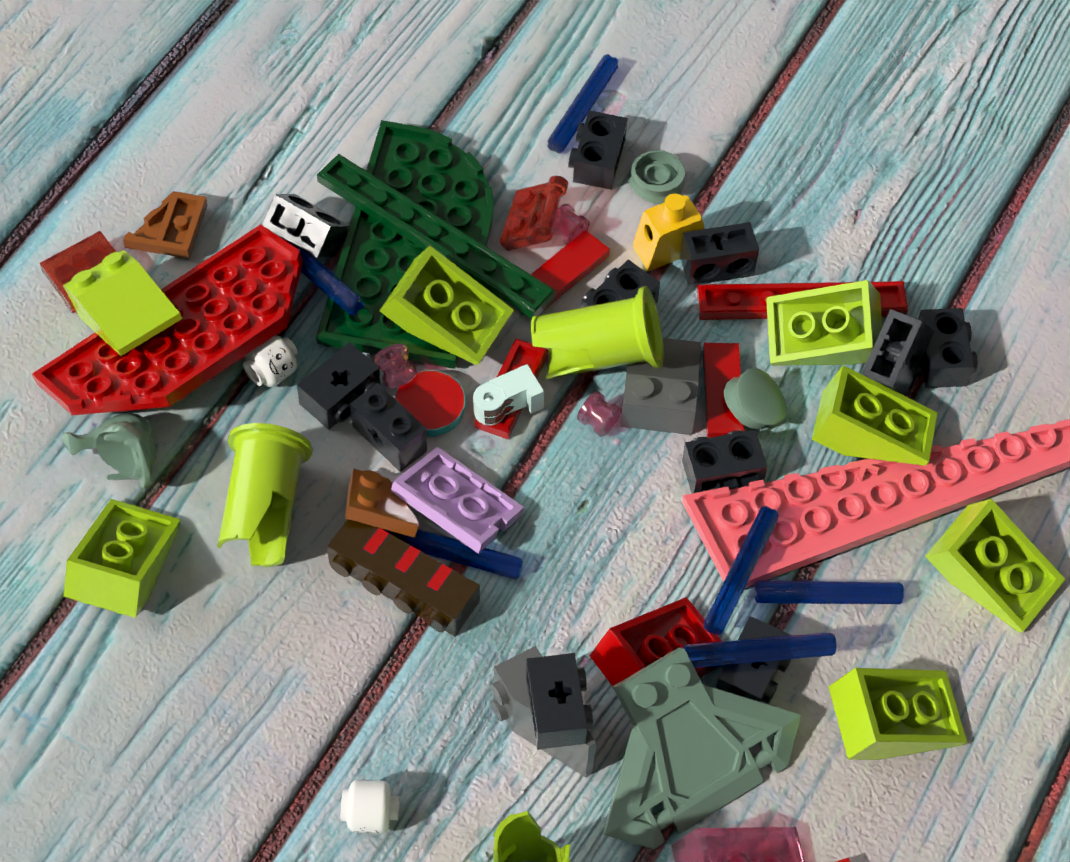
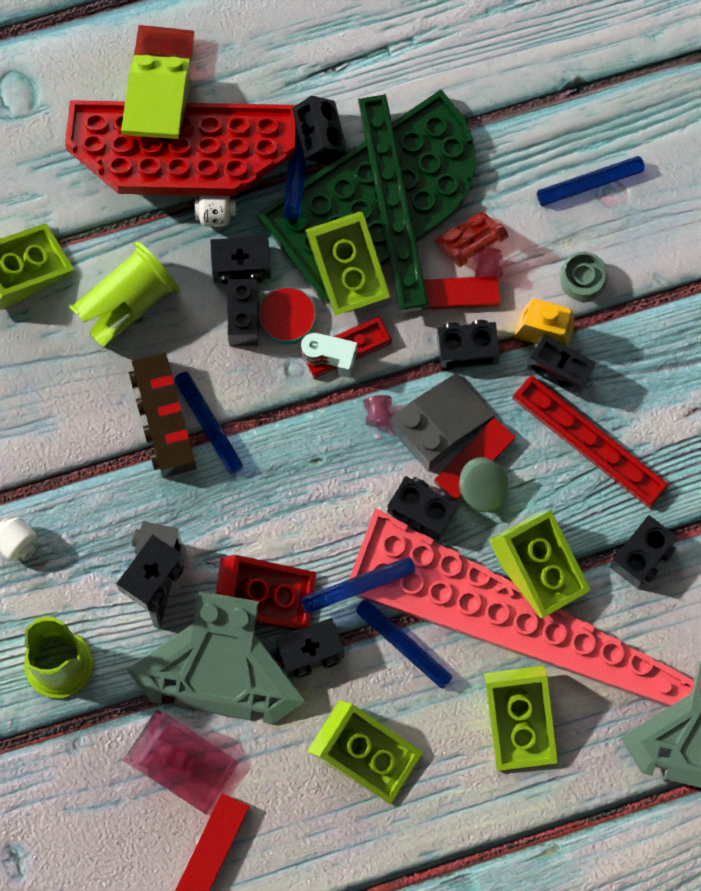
camera: 45 degrees right, 15 degrees up
(122, 443) = (81, 193): sand green piece -> none
(171, 226) = (242, 61): dark orange wing -> none
(375, 505) = (187, 357): dark orange wing -> none
(395, 365) = (285, 274): clear pink wheel -> none
(457, 499) = (237, 394): lavender piece -> none
(599, 149) = (568, 230): black brick -> none
(601, 336) = (421, 363): lime piece -> none
(761, 649) = (312, 643): clear blue axle -> none
(824, 325) = (579, 473): lime slope -> none
(898, 351) = (599, 531): black brick -> none

